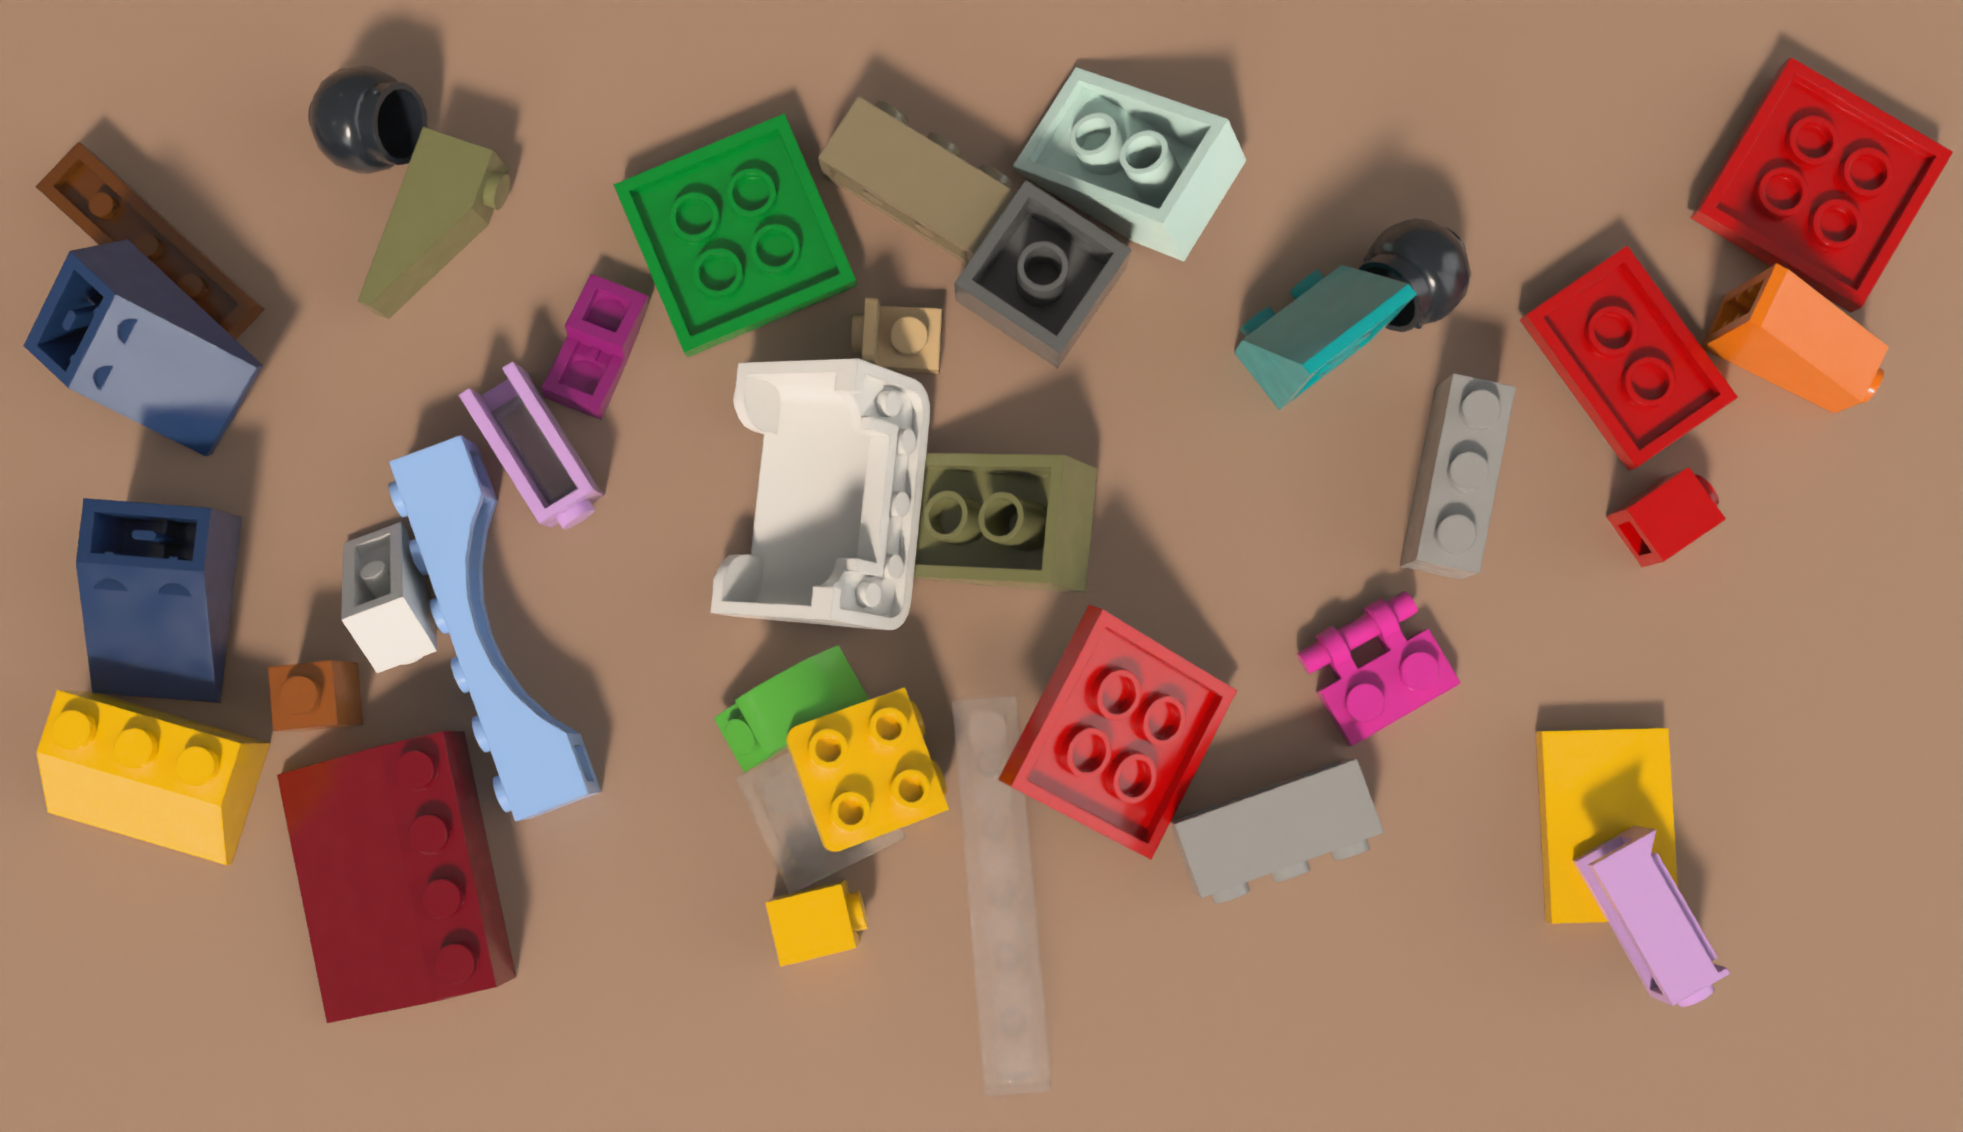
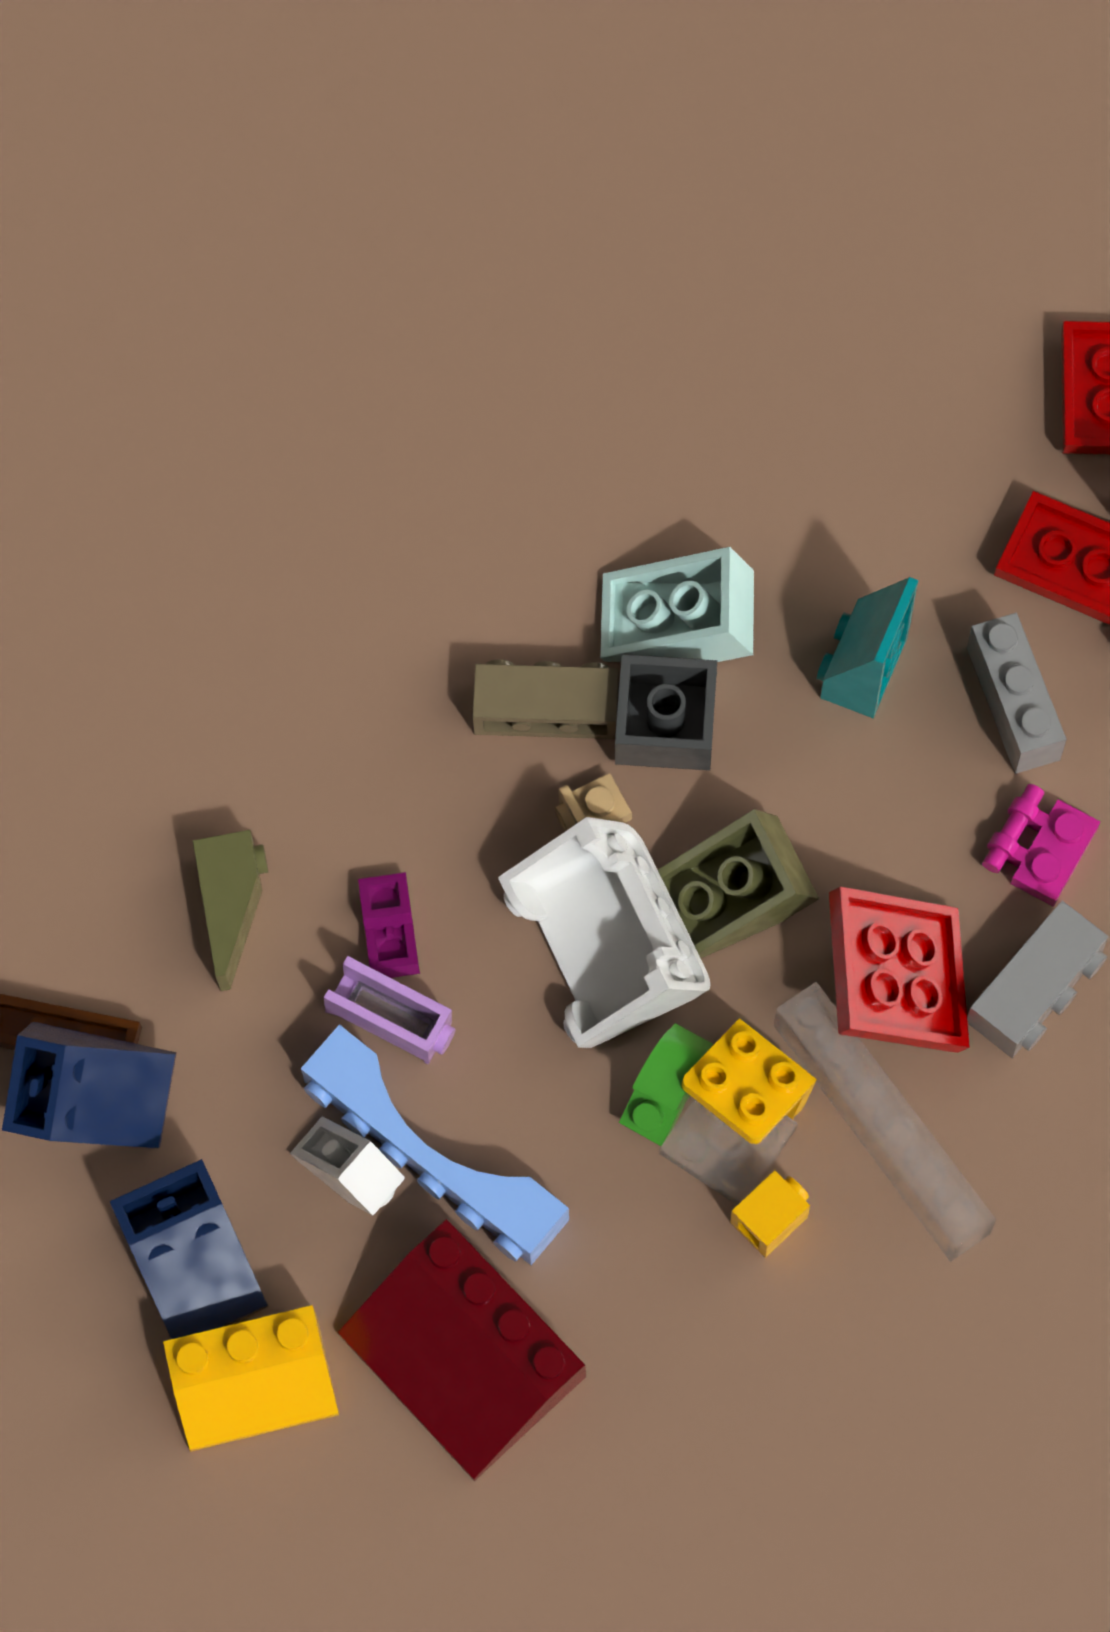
camera: 30 degrees left, 15 degrees down
(315, 696) = (338, 1256): dark orange brick -> none
(366, 119) = (147, 859): black piece -> none
(735, 235) = (442, 801): green plate -> none
(1428, 260) = (916, 561): black piece -> none

